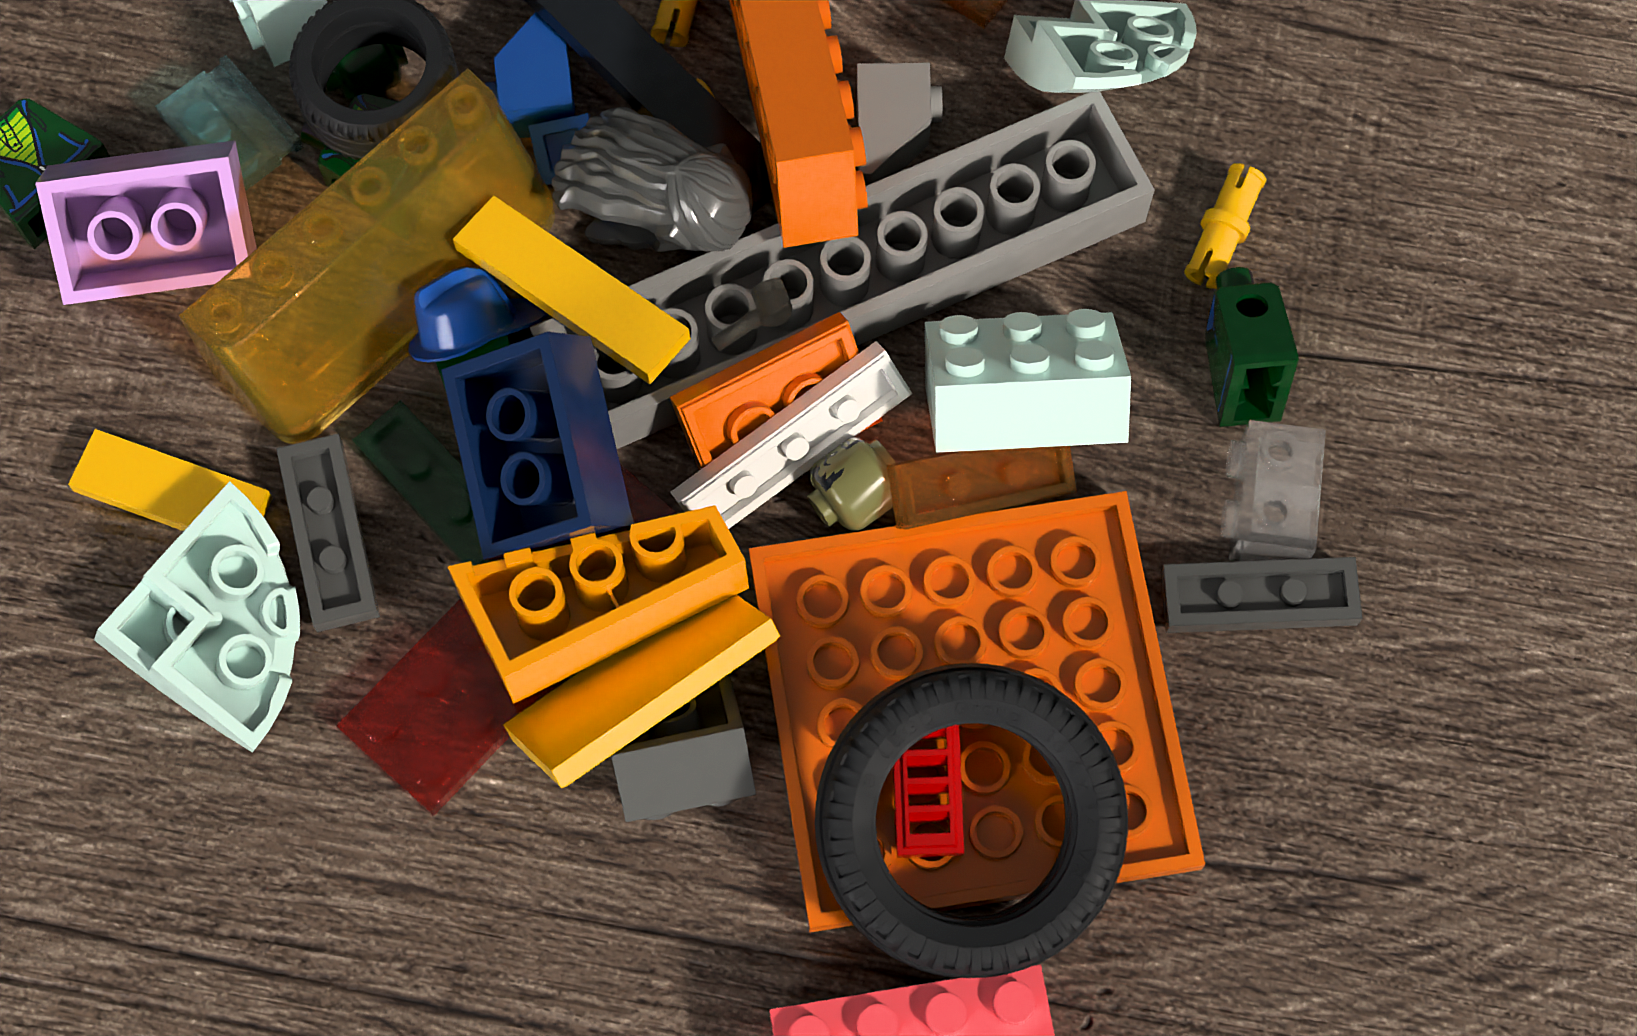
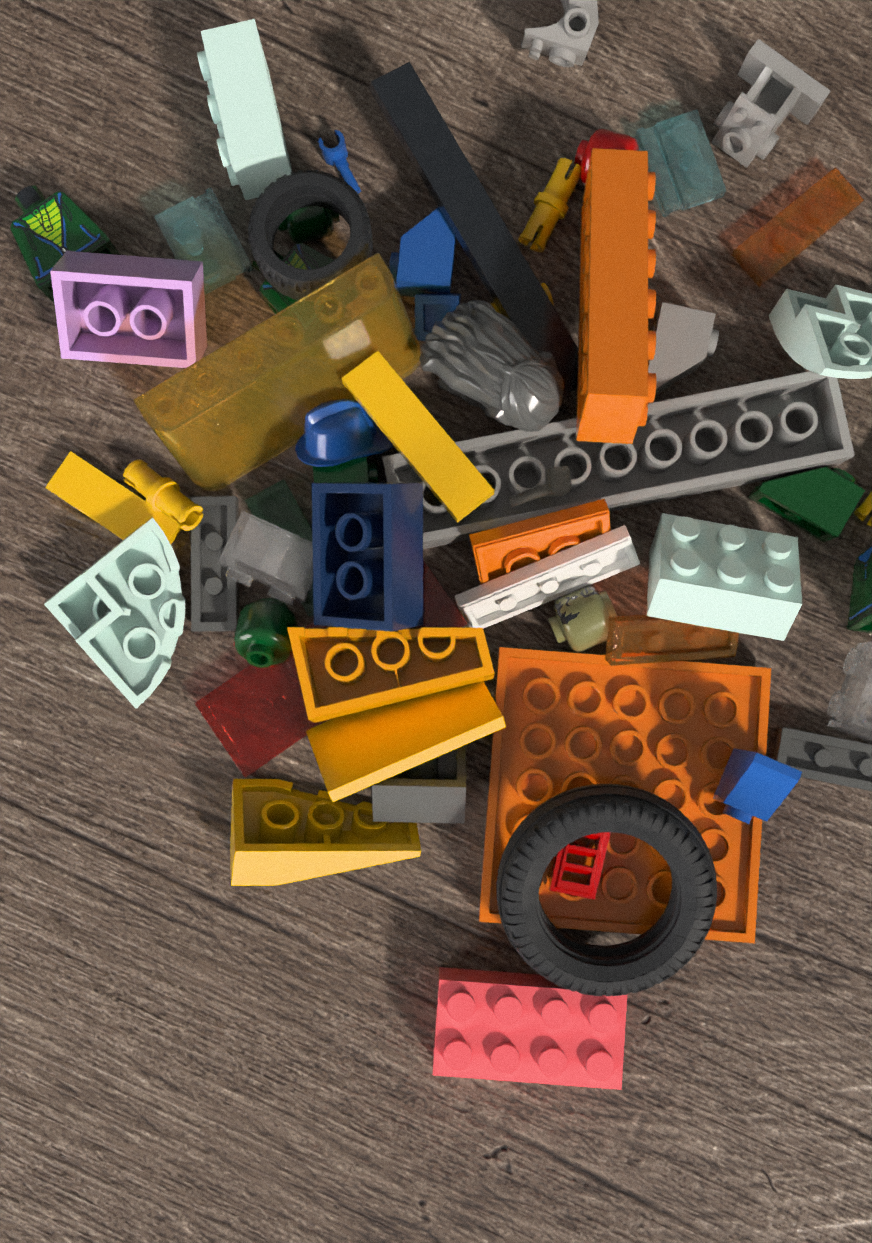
camera: 20 degrees right, 15 degrees up
(237, 453) = (163, 495): none -> yellow pin
(404, 497) = (269, 557): none -> clear brick
(417, 602) = (264, 632): none -> dark green head
(512, 877) = (301, 836): none -> yellow wedge
(1117, 267) = (812, 500): none -> dark green slope
(1138, 632) = (754, 785): none -> blue slope

